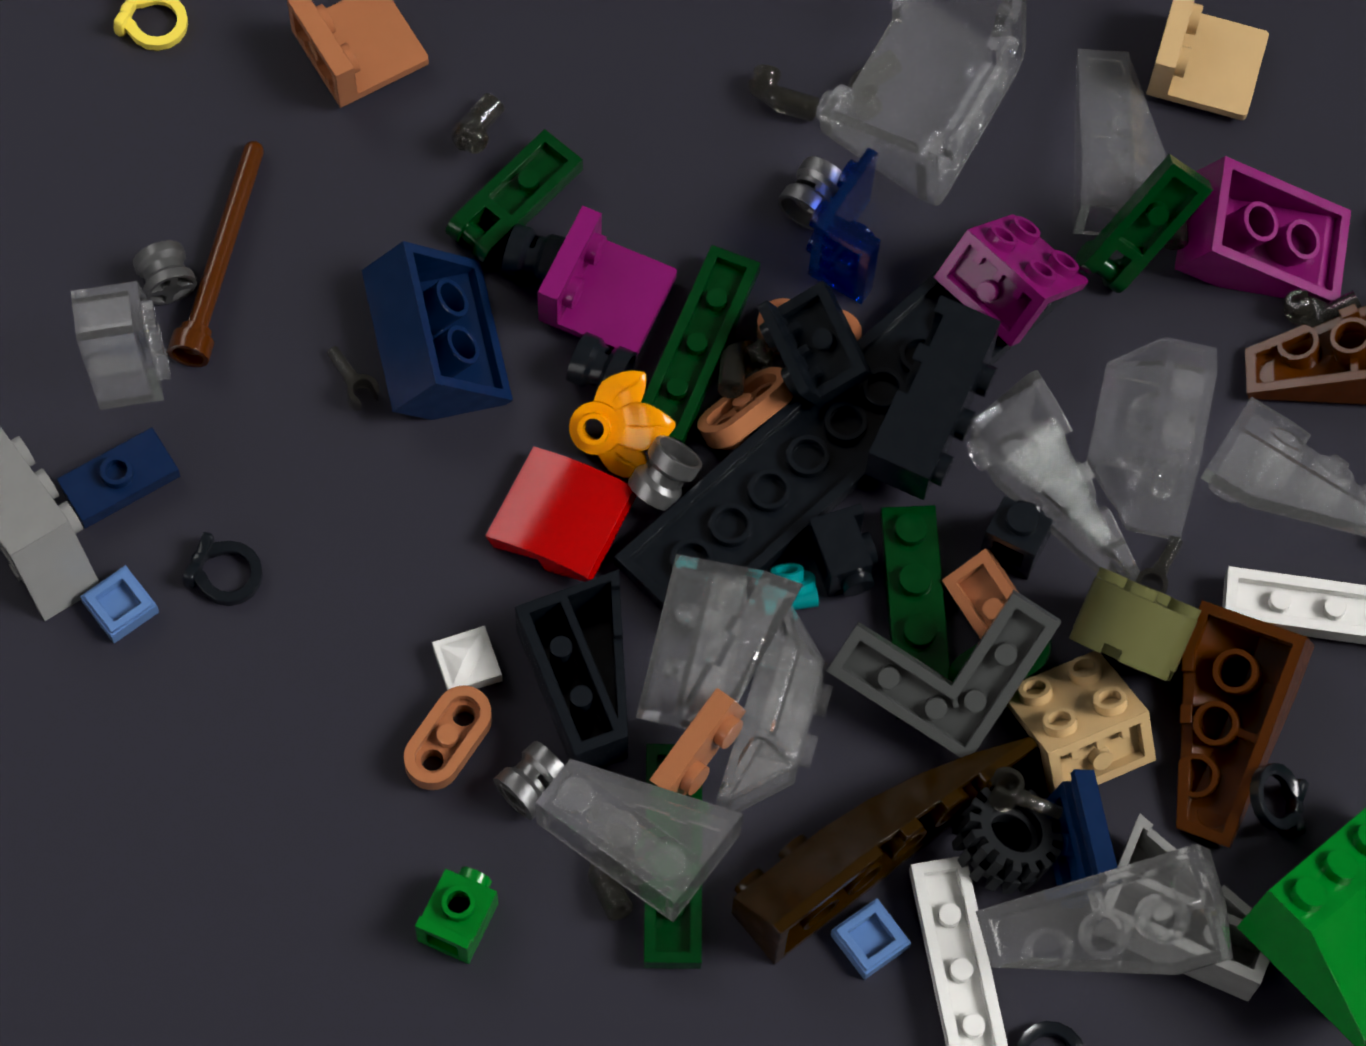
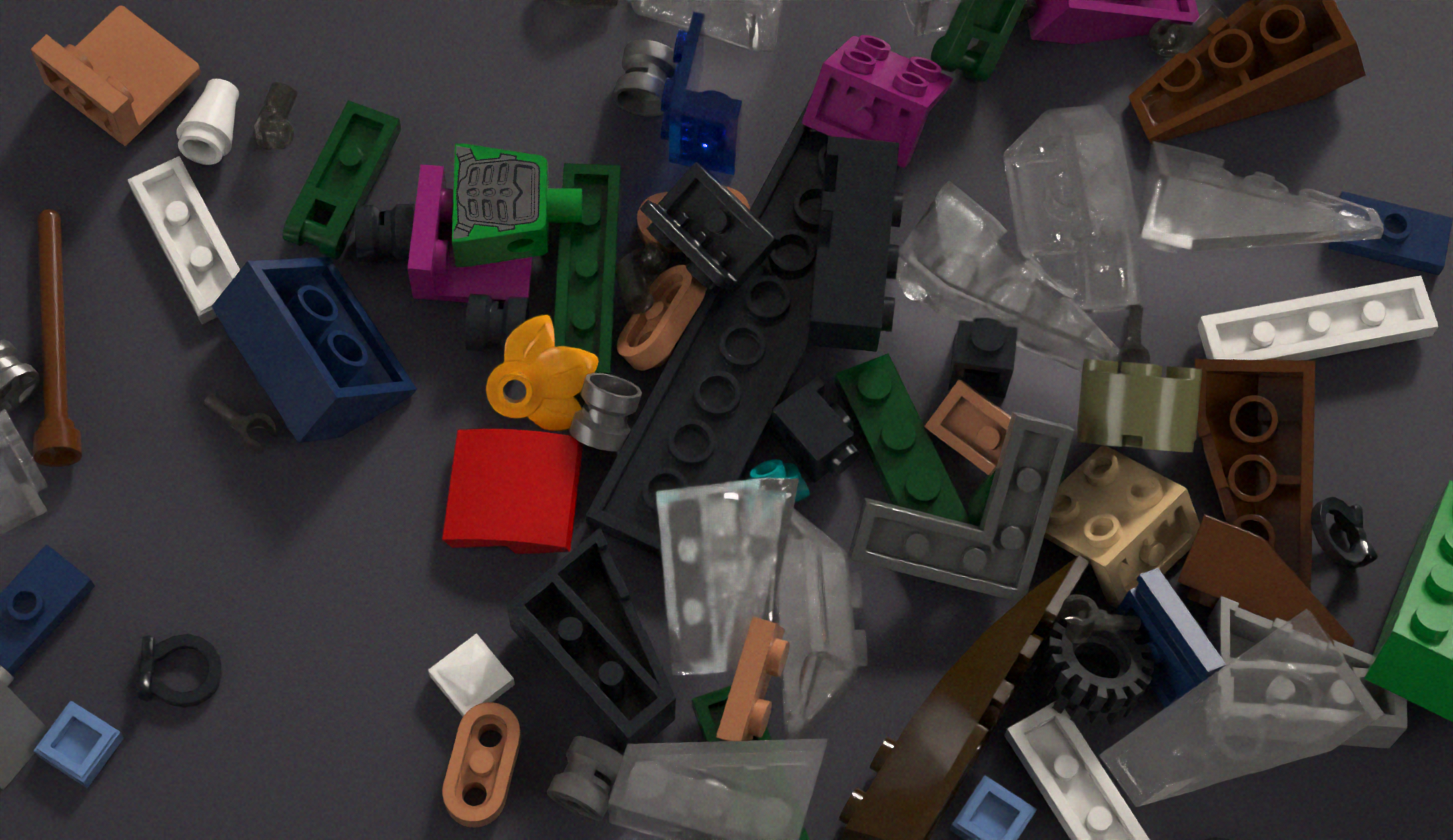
camera: 20 degrees left, 0 degrees up
(364, 199) = (186, 233): none -> white tile
(418, 112) = (209, 125): none -> white cone
(644, 265) = (505, 205): none -> torso
(1180, 809) = (1249, 571): none -> reddish brown slope

